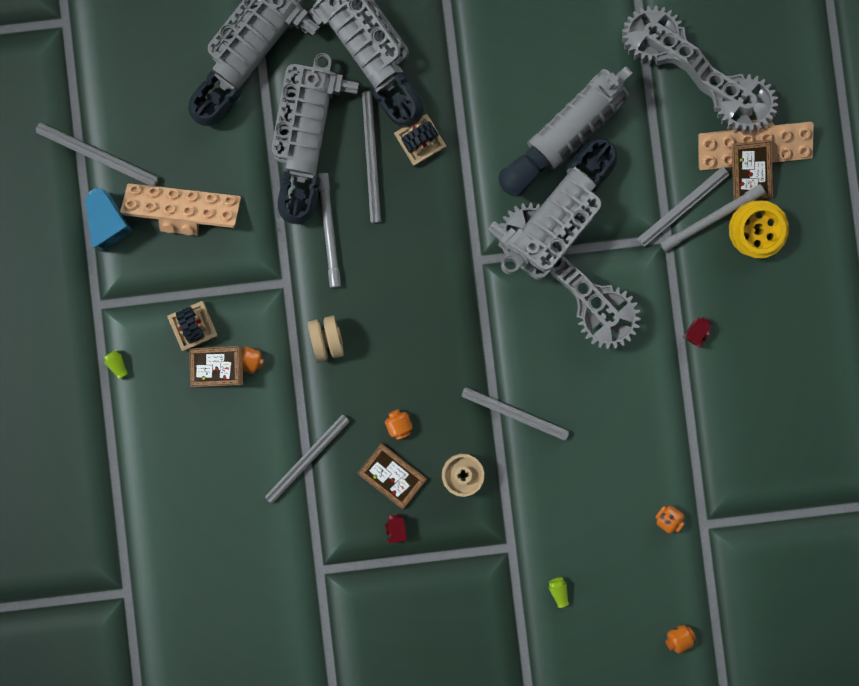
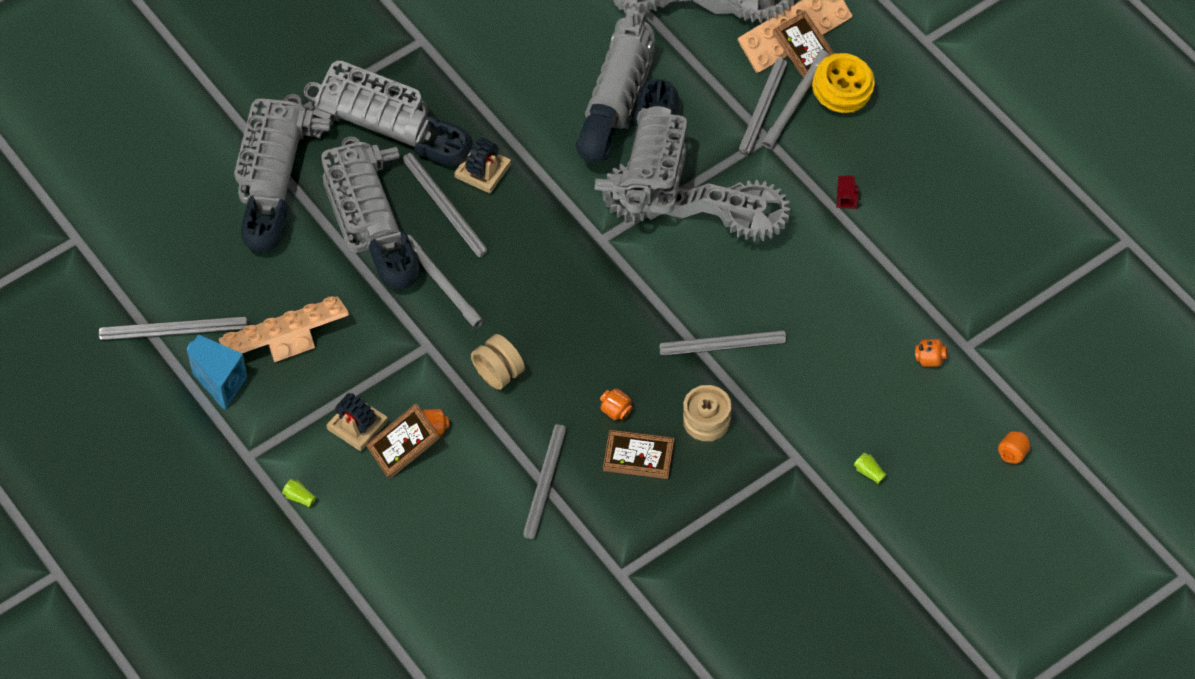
camera: 30 degrees left, 30 degrees down
(396, 528) = (673, 494): dark red brick -> none

